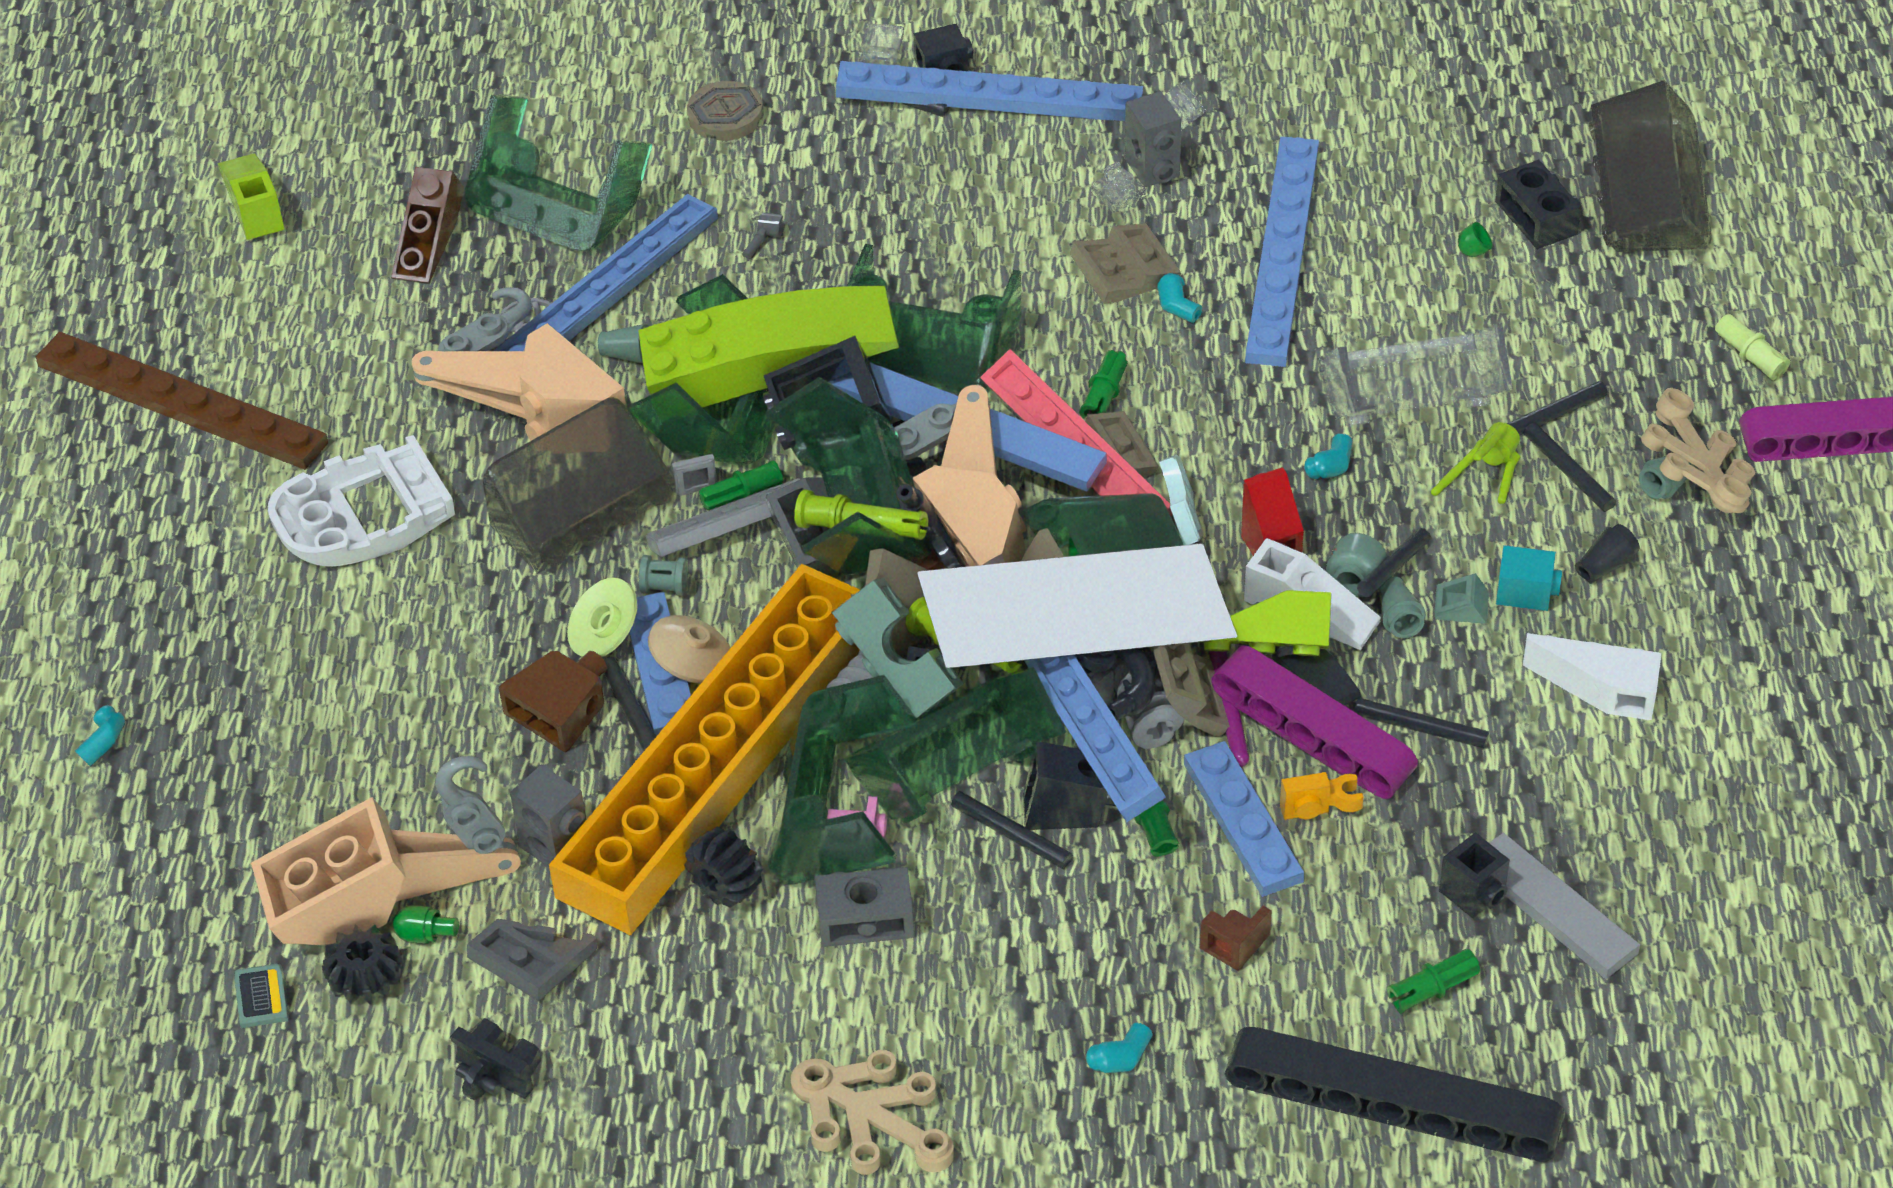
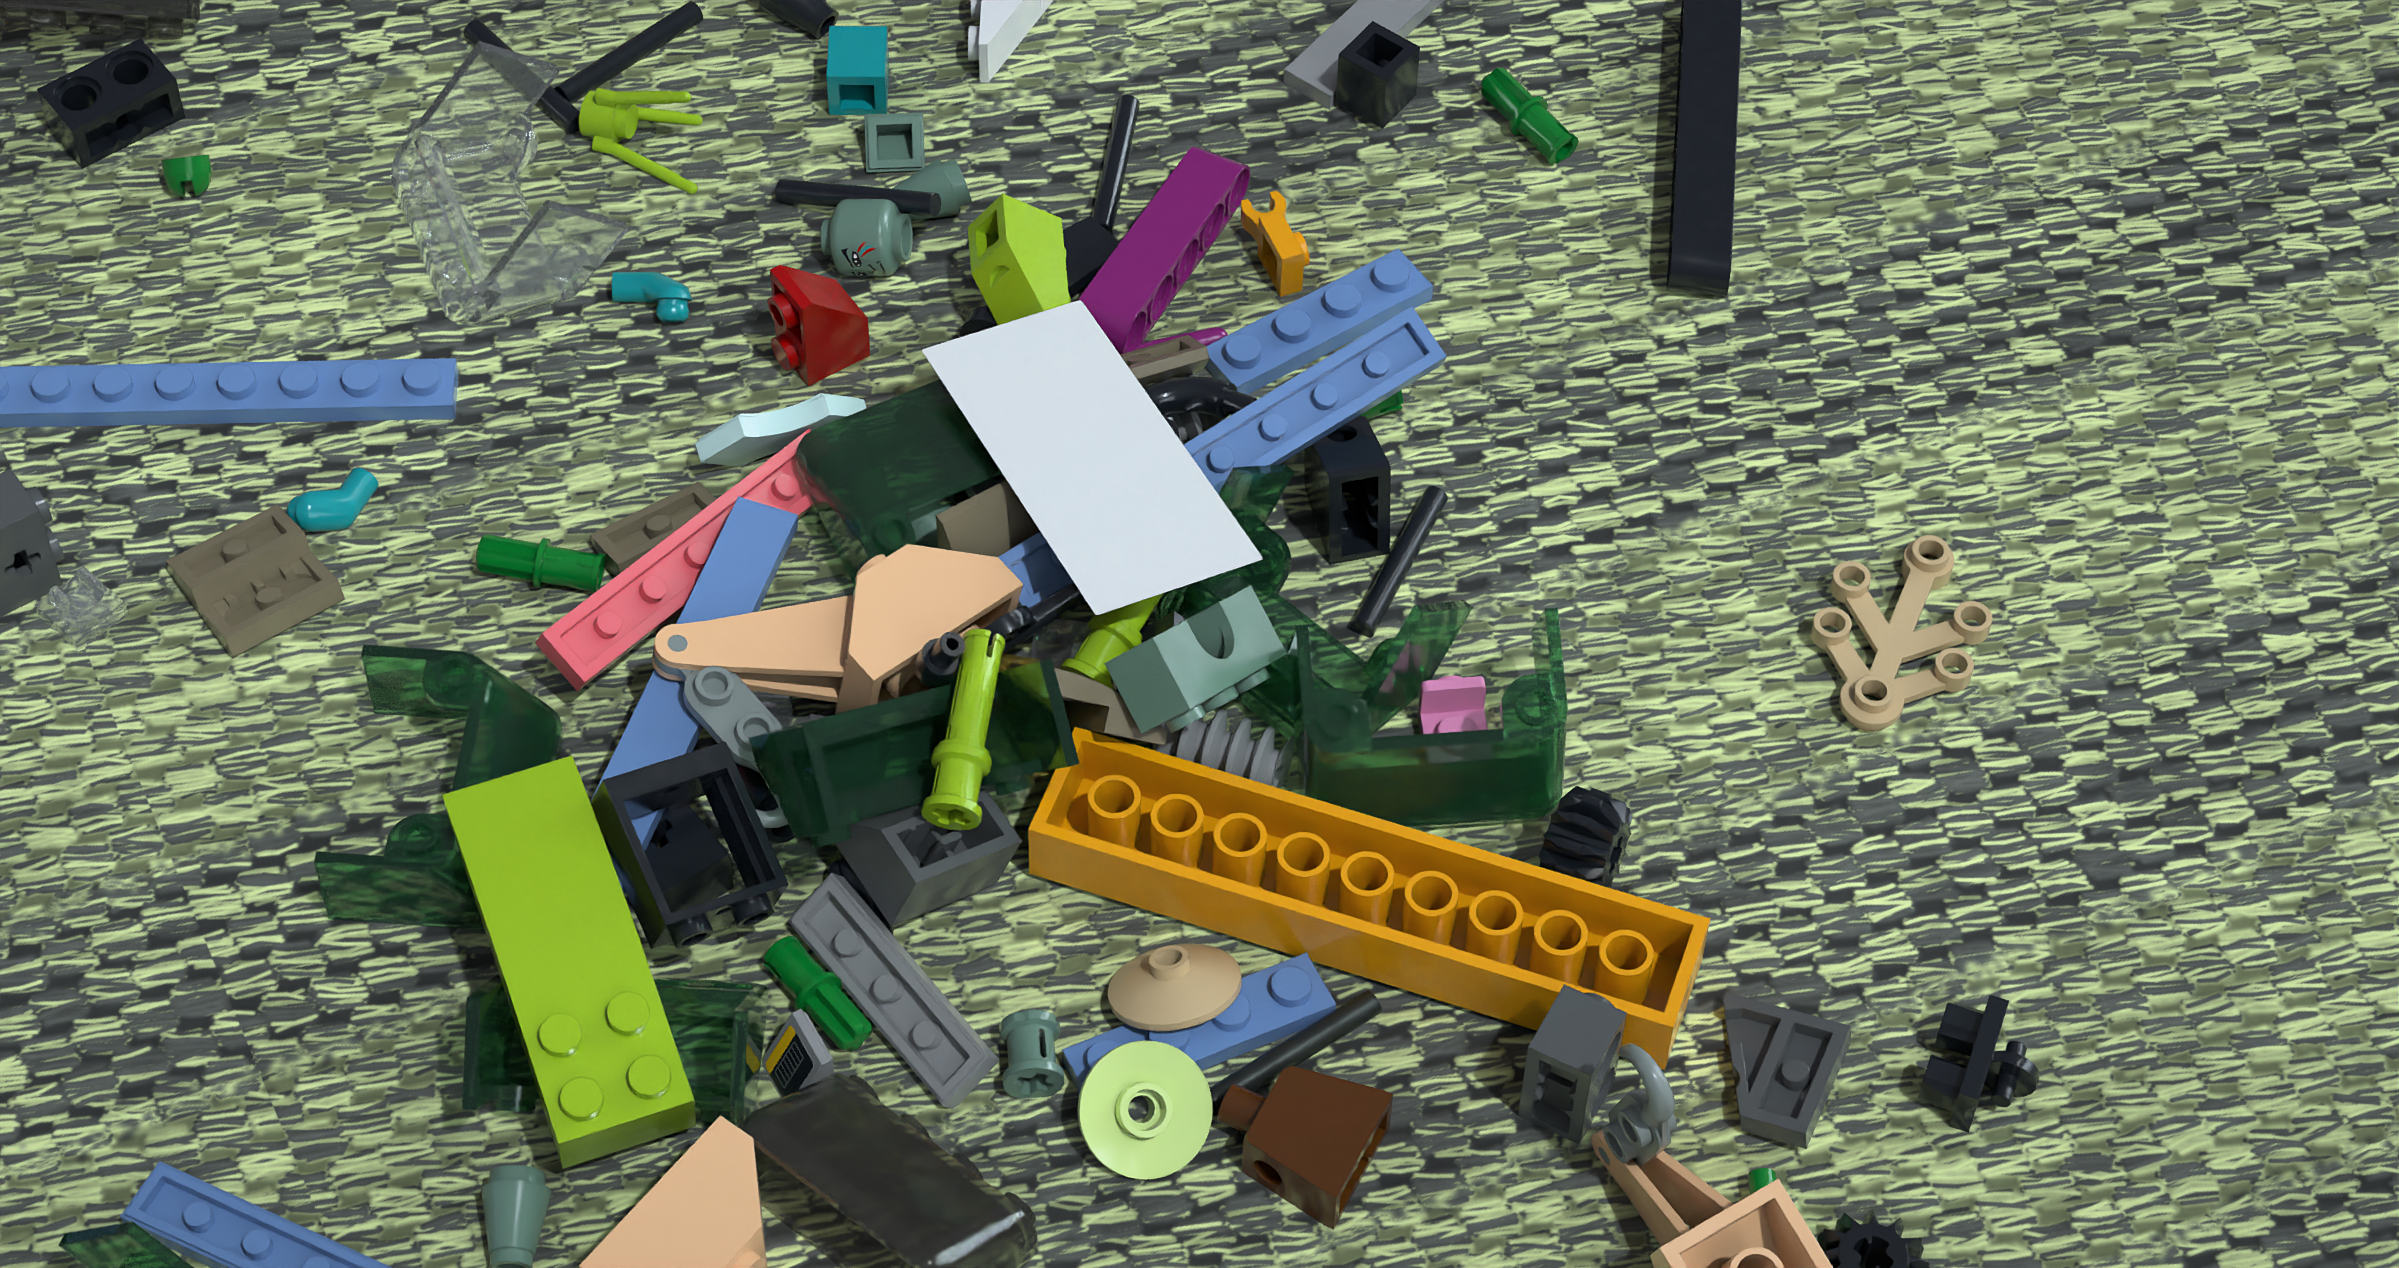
camera: 105 degrees left, 5 degrees up
(768, 225) = (197, 1081): dark grey hand -> none
(864, 906) = (1614, 707): dark grey brick -> none
(1120, 1055) = (1724, 393): teal arm -> none
(1235, 936) = (1514, 300): copper panel -> none
(1281, 568) = (927, 290): white slope -> none

